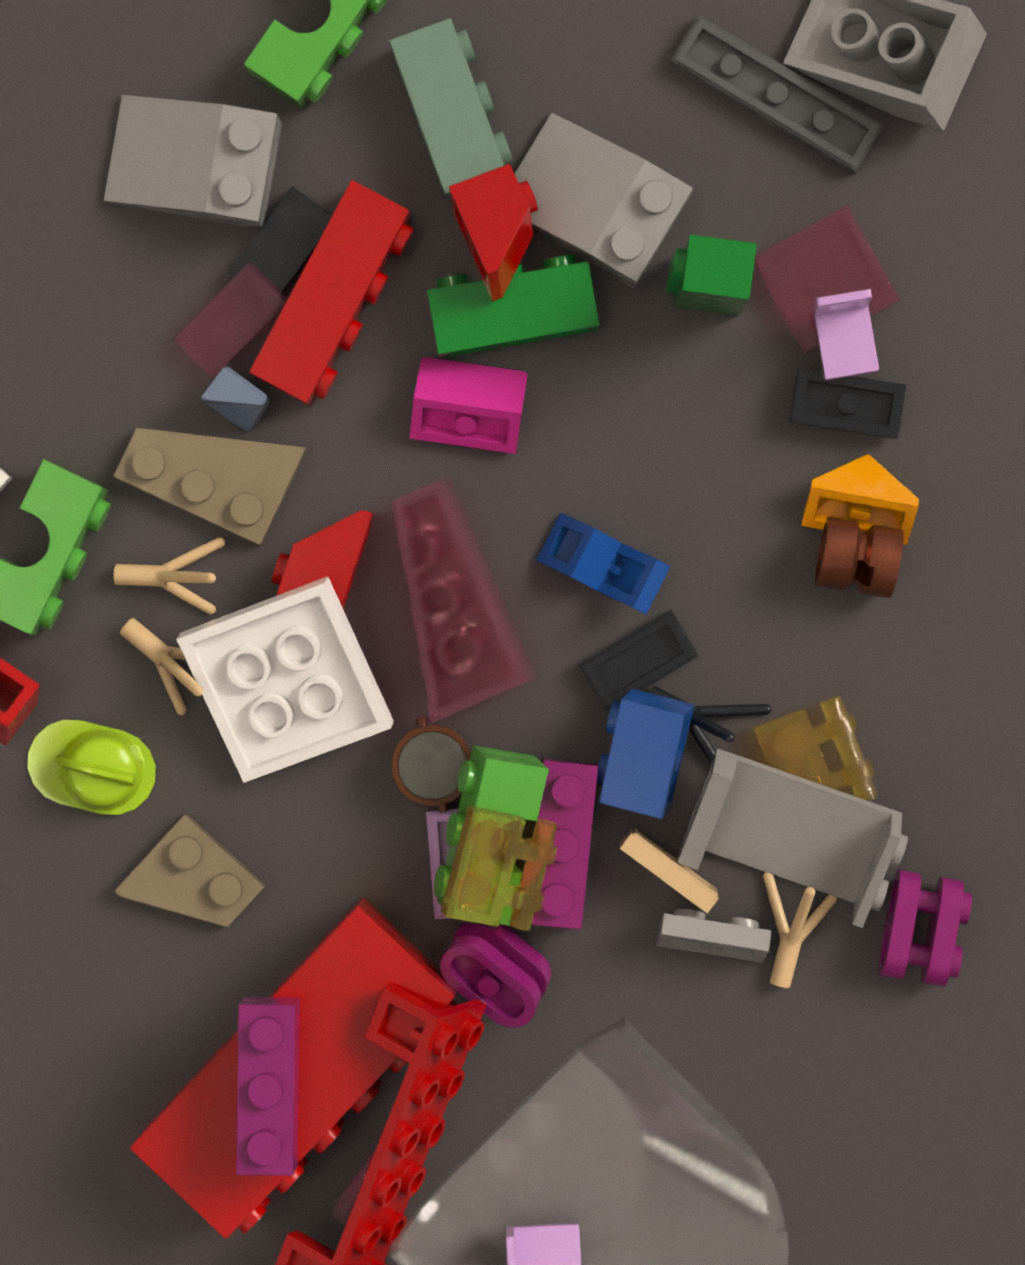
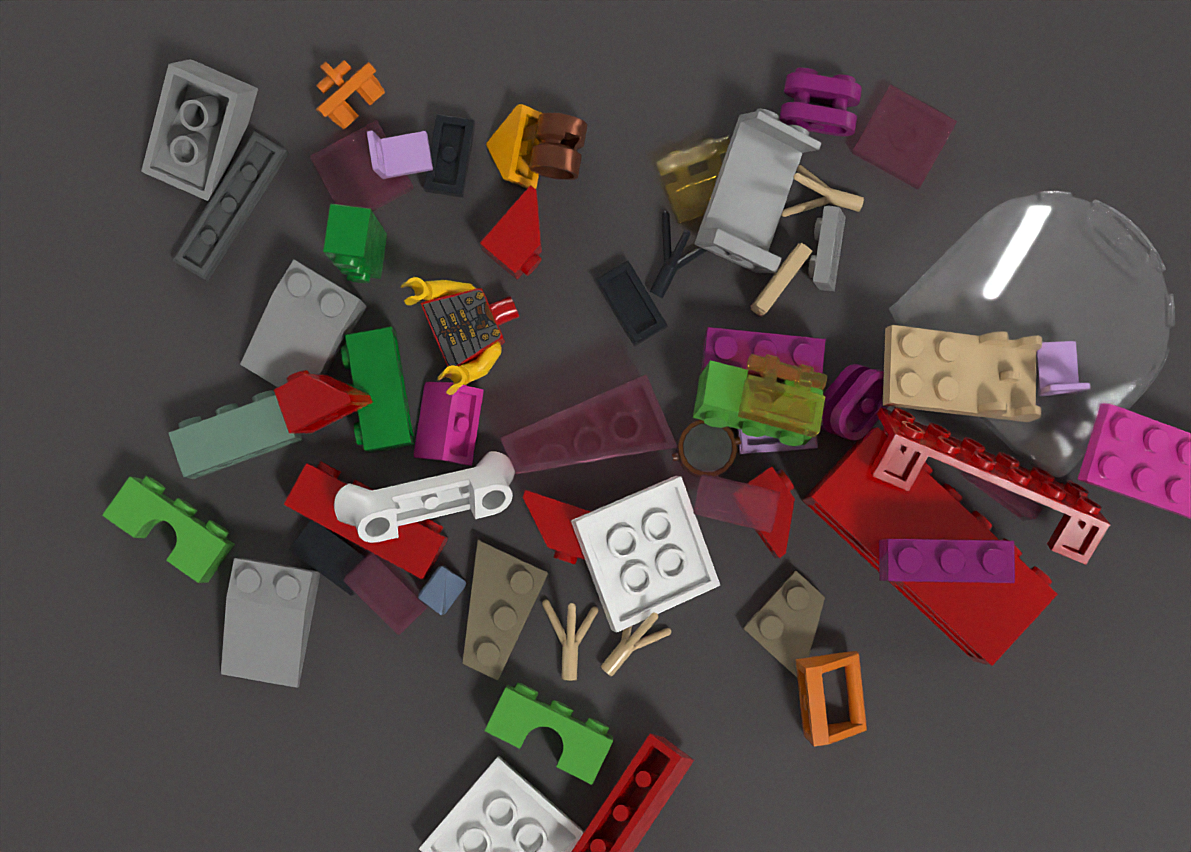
camera: 85 degrees left, 5 degrees down
(85, 907) = (813, 700): none -> orange tile
(91, 767) = (709, 697): lime piece -> none
(339, 316) = (381, 511): none -> white plate
(350, 850) = (778, 481): none -> red slope
(353, 804) = (736, 503): none -> clear pink tile
(533, 1117) = (961, 373): none -> tan hinge
(601, 425) = (463, 326): none -> torso
(603, 563) = (562, 327): blue slope -> none
(644, 752) = (697, 295): blue brick -> none
(729, 500) = (517, 237): none -> red slope
(876, 1047) = (904, 137): none -> clear pink tile
(954, 275) = (362, 82): none -> orange hips

